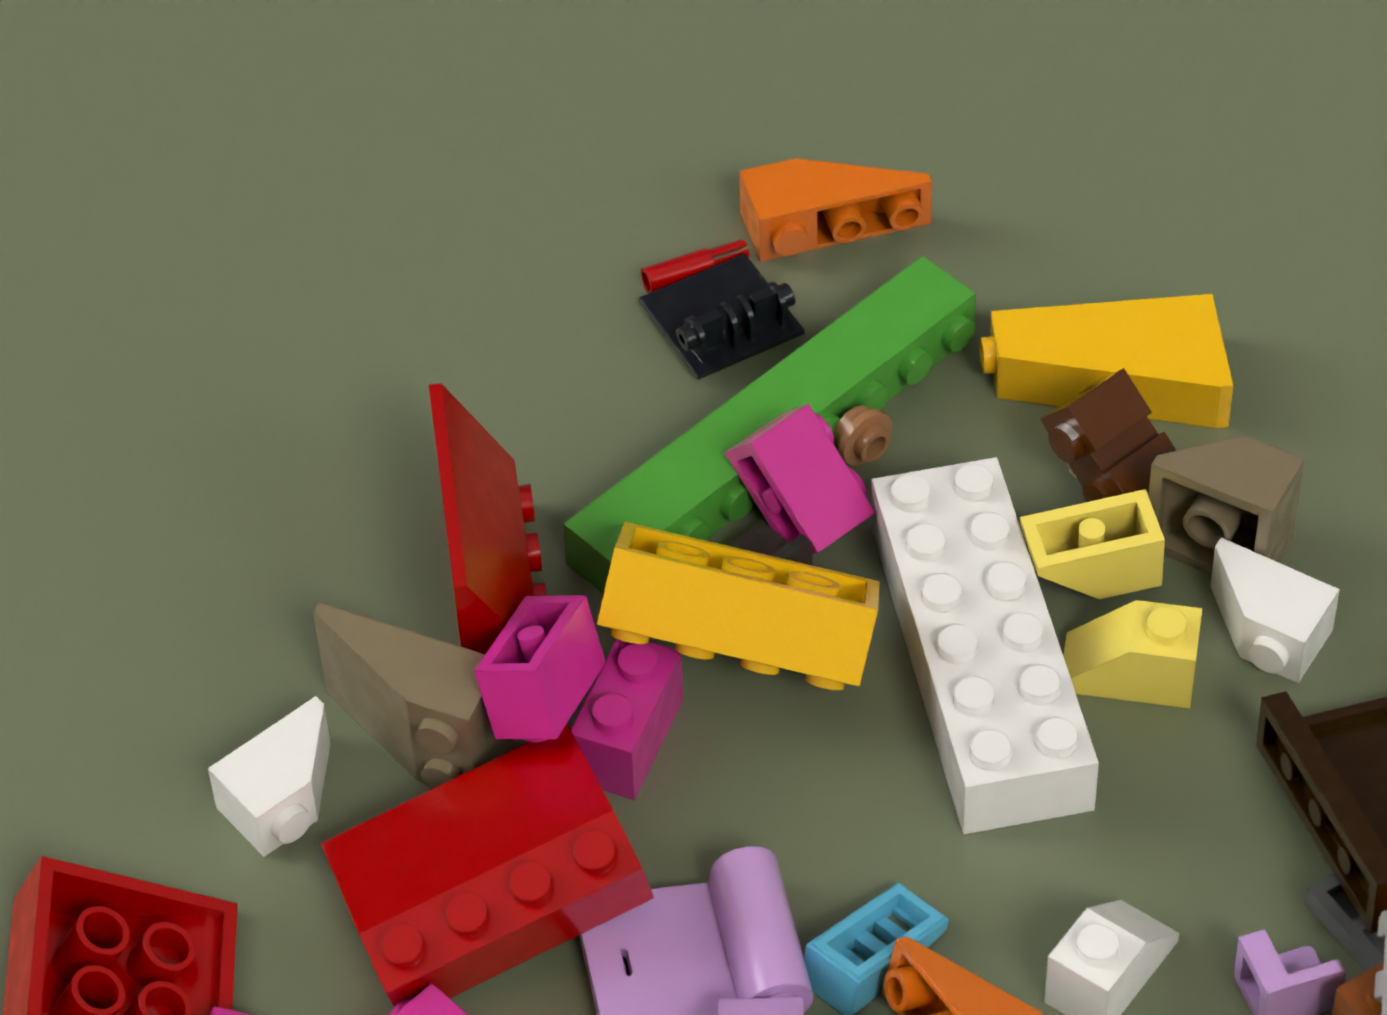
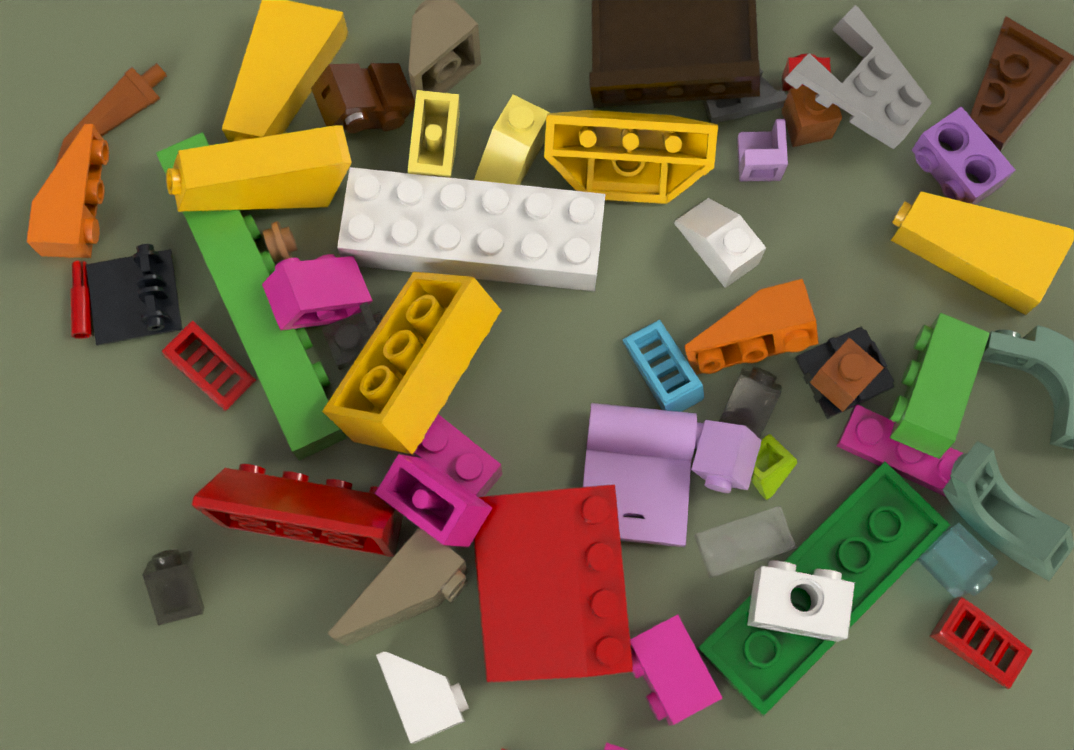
camera: 75 degrees left, 25 degrees up
(340, 471) = (173, 586): none -> clear smoke bracket
(658, 375) = (183, 341): none -> red slope
(937, 358) = (262, 172): none -> yellow slope
(996, 219) = (122, 102): none -> dark orange bar
(1188, 784) = (630, 153): none -> yellow wedge
(1272, 610) = (508, 61): white slope -> none

